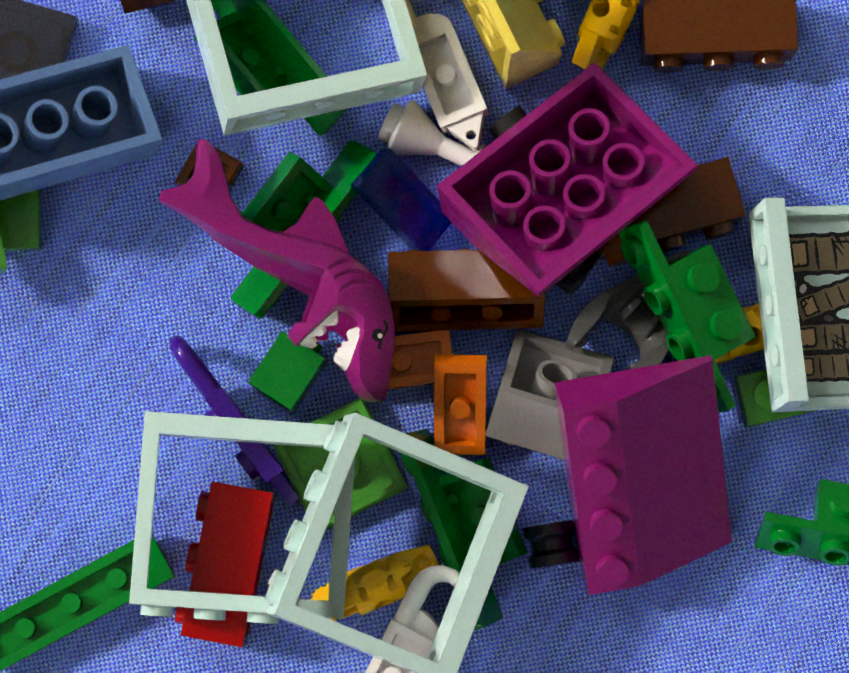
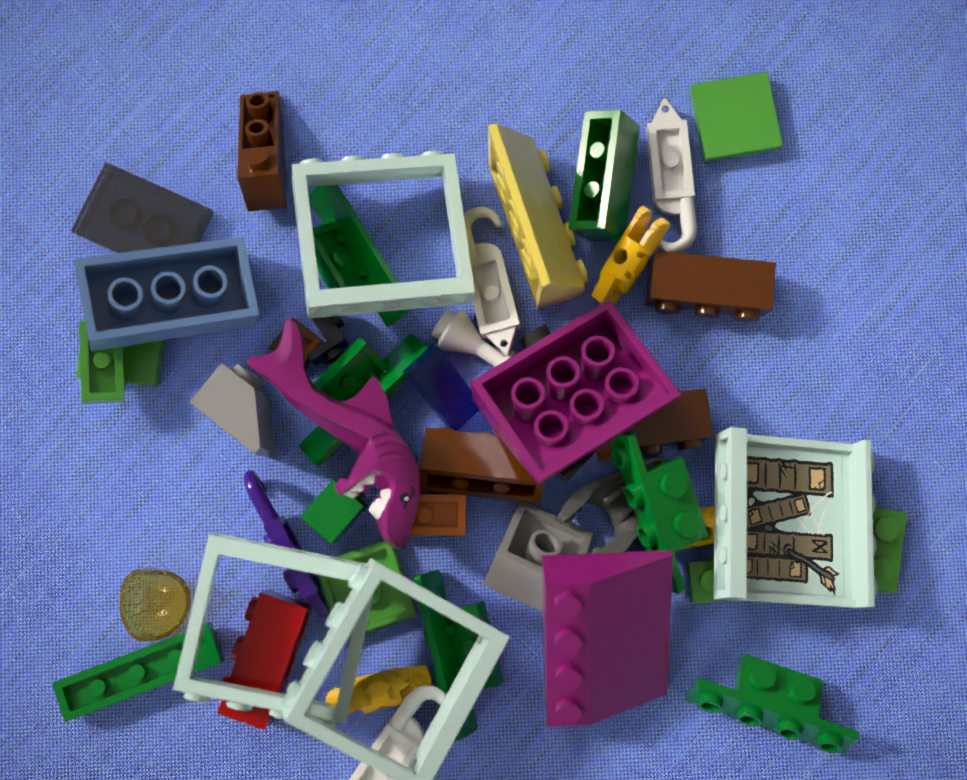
camera: 10 degrees right, 0 degrees up
(78, 514) = (153, 603): none -> clear yellow helmet
(151, 256) = (239, 407): none -> light grey slope
(258, 159) = (335, 341): none -> black bracket
(460, 403) = (466, 556): orange plate -> none
(551, 544) = (523, 678): black wheel -> none

